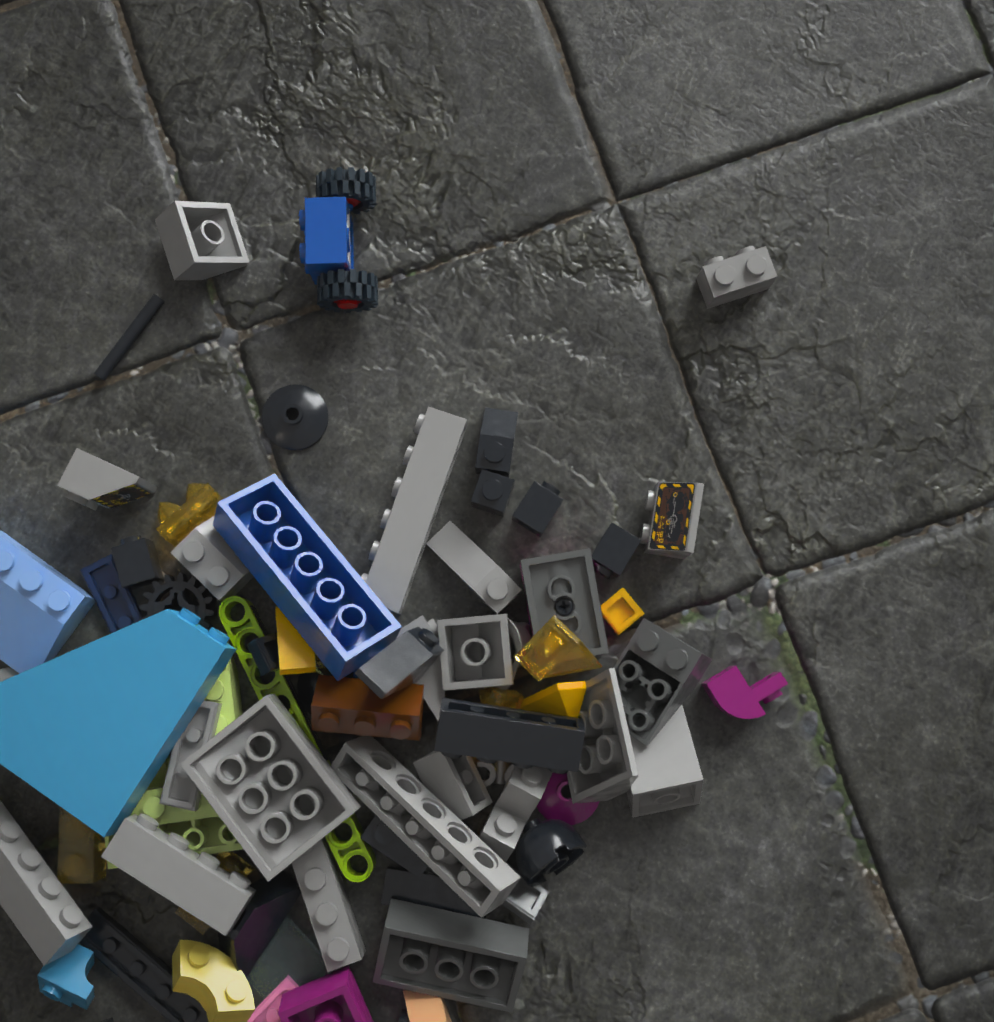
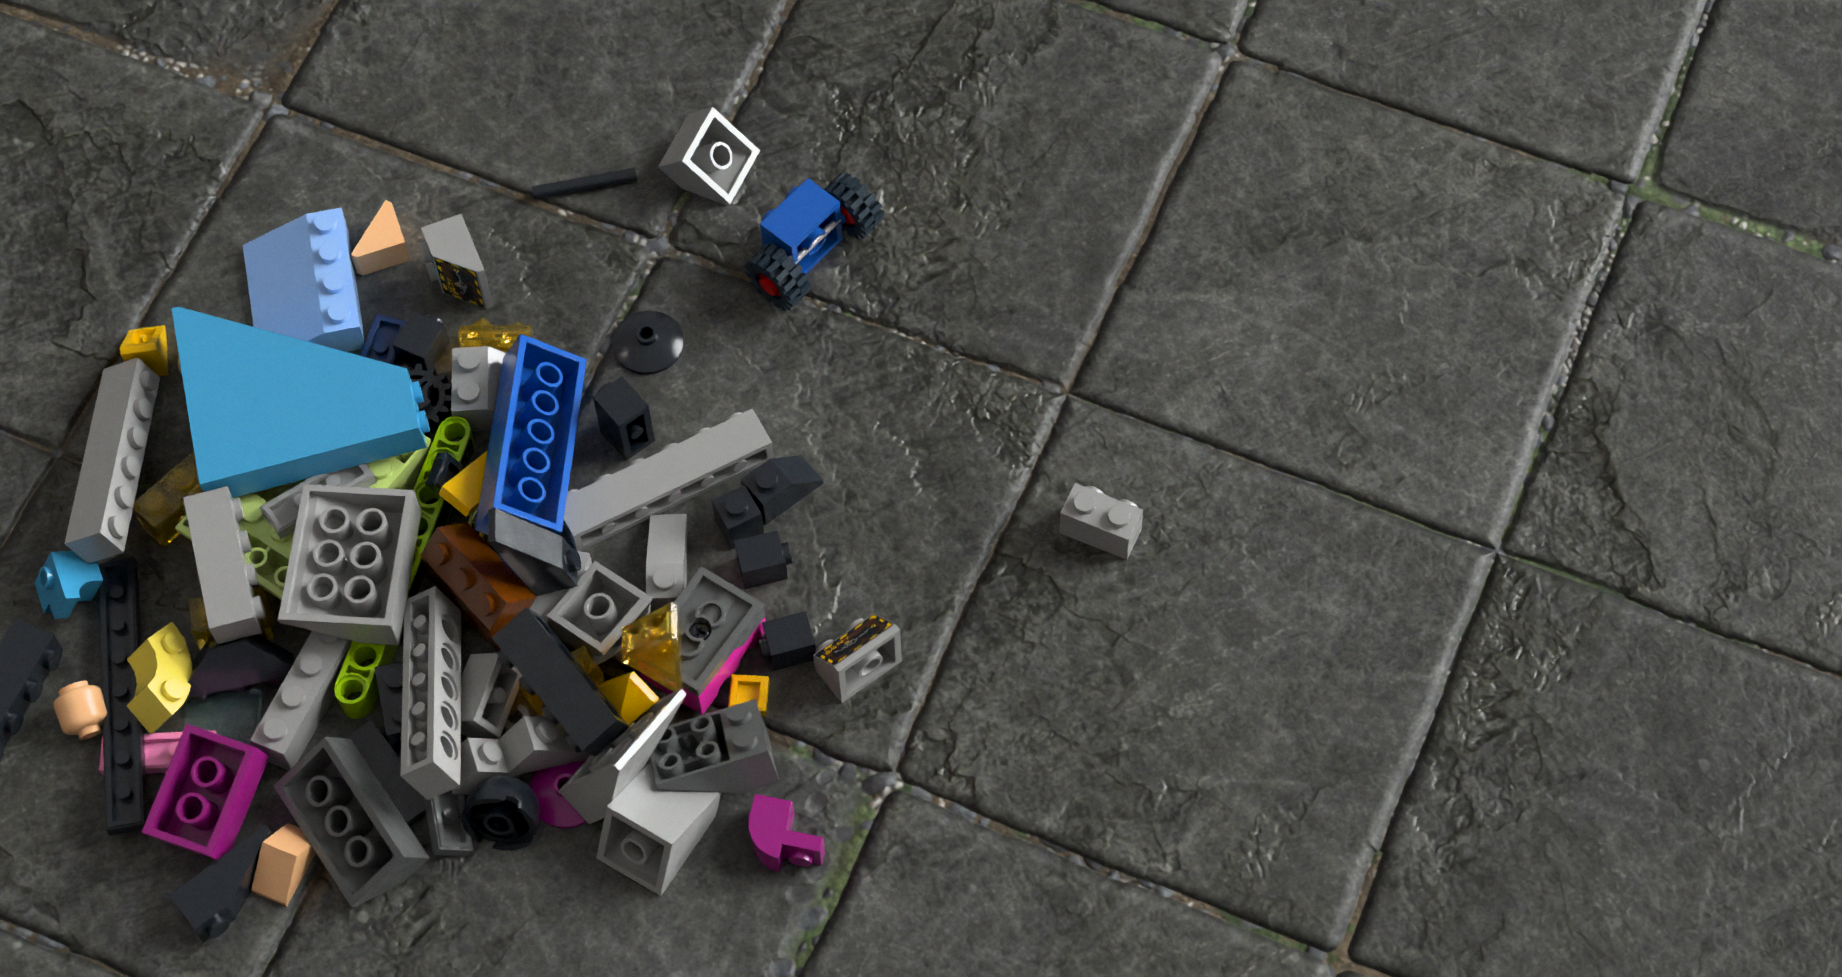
camera: 45 degrees right, 20 degrees down
(29, 513) = (381, 243): none -> light nougat slope
(344, 493) = (623, 417): none -> black brick

